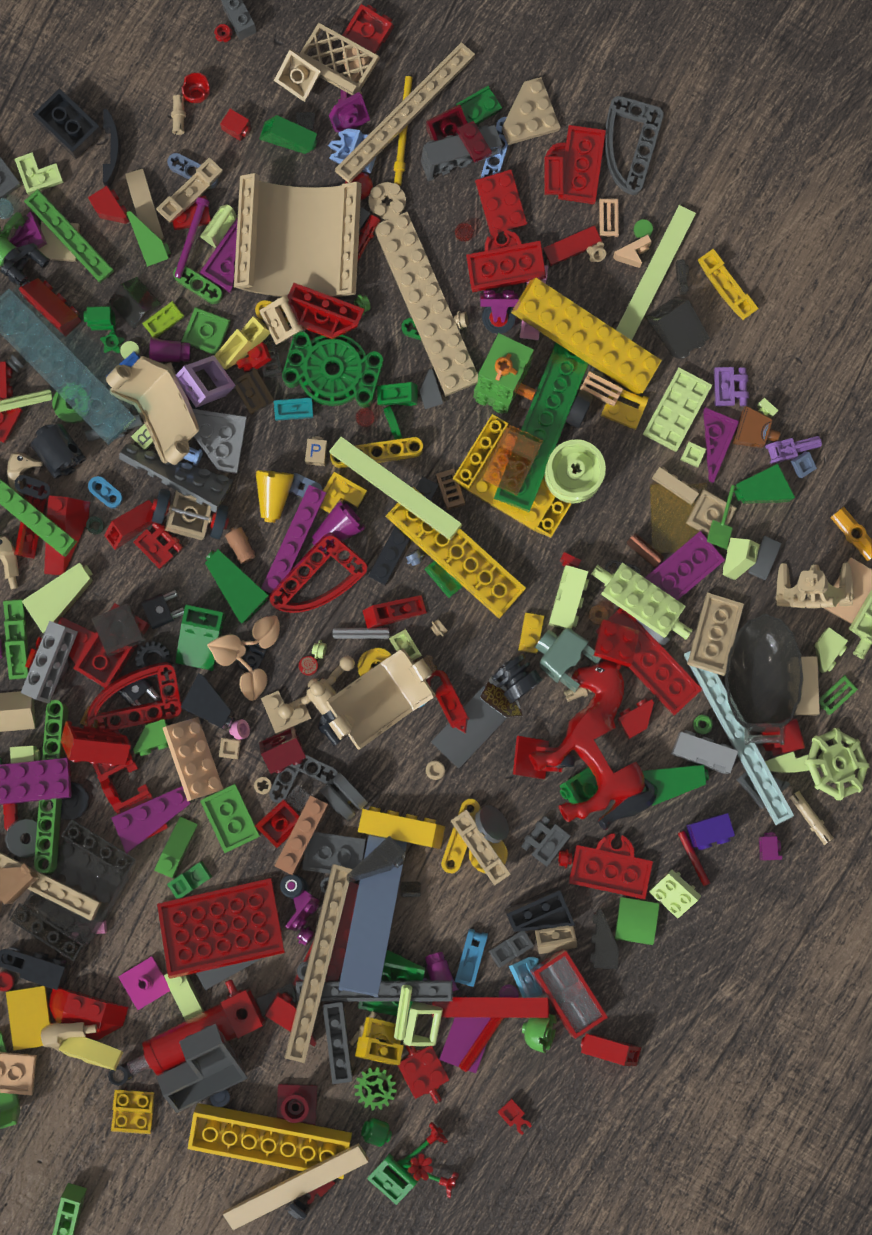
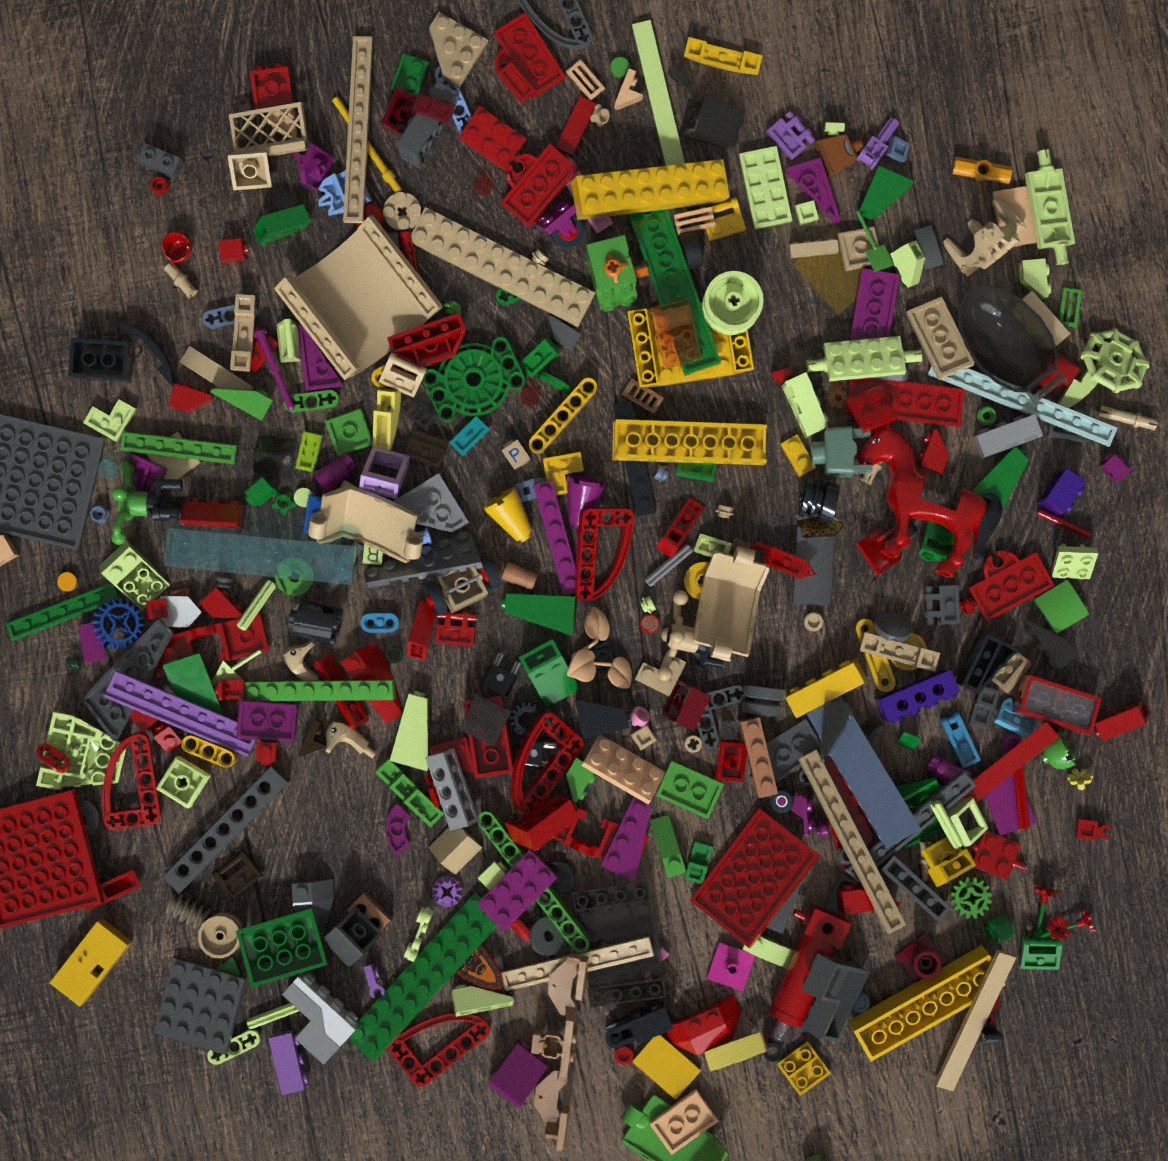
camera: 40 degrees left, 5 degrees up
(30, 491) = (324, 671): black beam -> none
(55, 1033) = (697, 1061): tan animal -> none
(257, 358) = (408, 418): red plate -> none
(395, 488) = (604, 432): yellowish green tile -> none
(430, 924) = (908, 740): none -> green slope
(496, 897) = (946, 690): none -> dark purple brick
(539, 1068) = (1080, 778): none -> light yellow plant
(645, 550) = (832, 318): copper slope -> none

